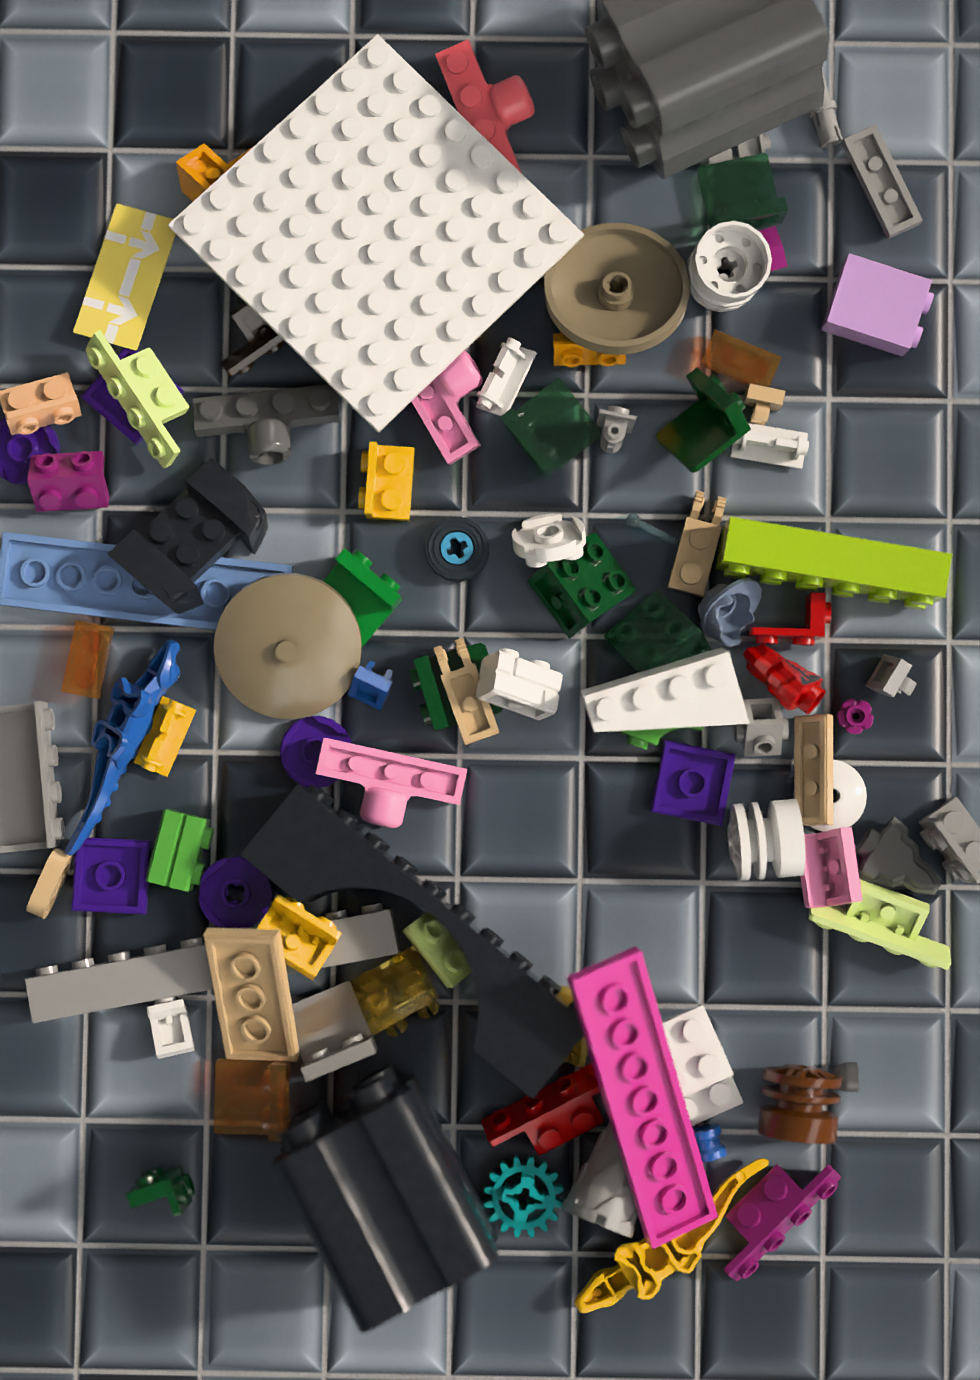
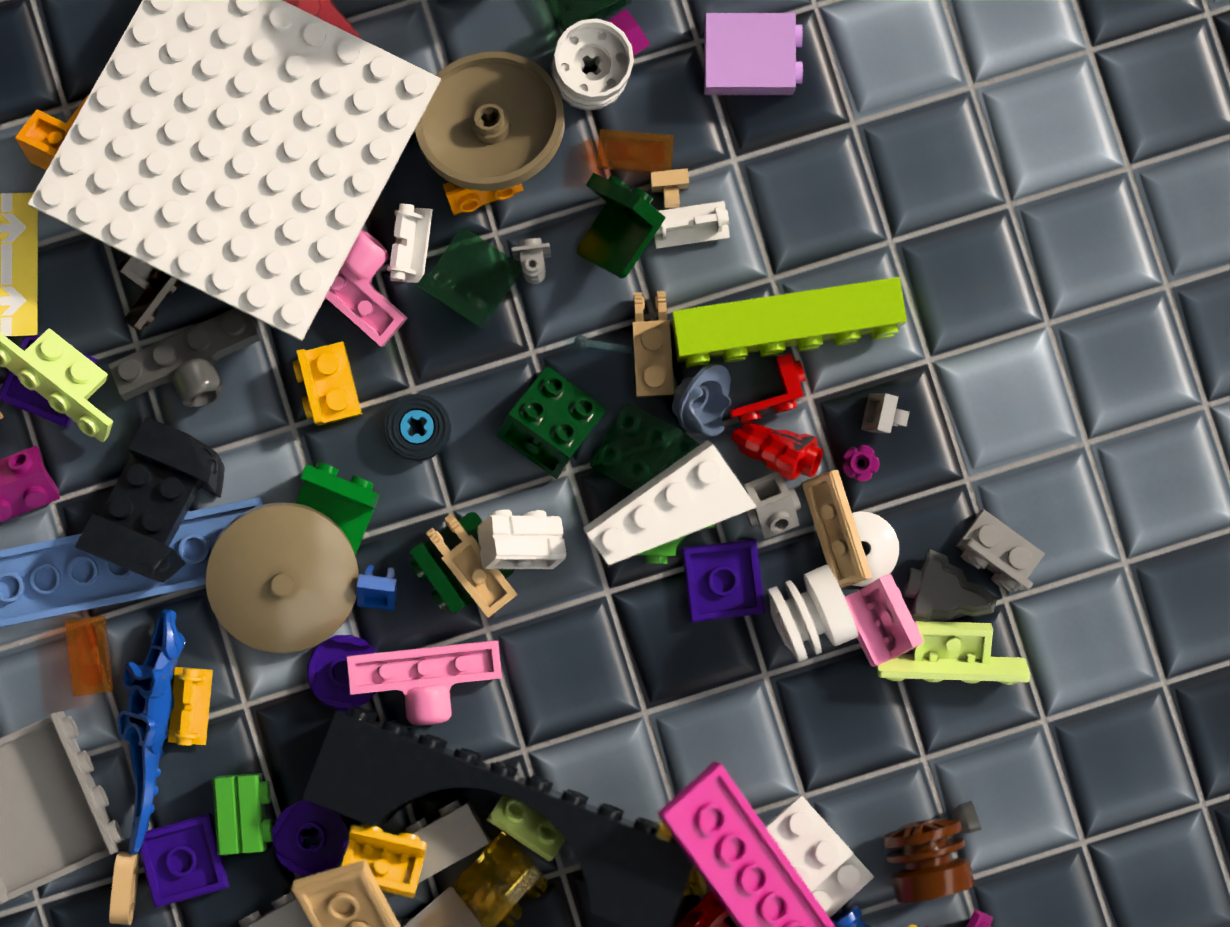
camera: 25 degrees left, 0 degrees up
(549, 539) = (504, 389): white plate -> none

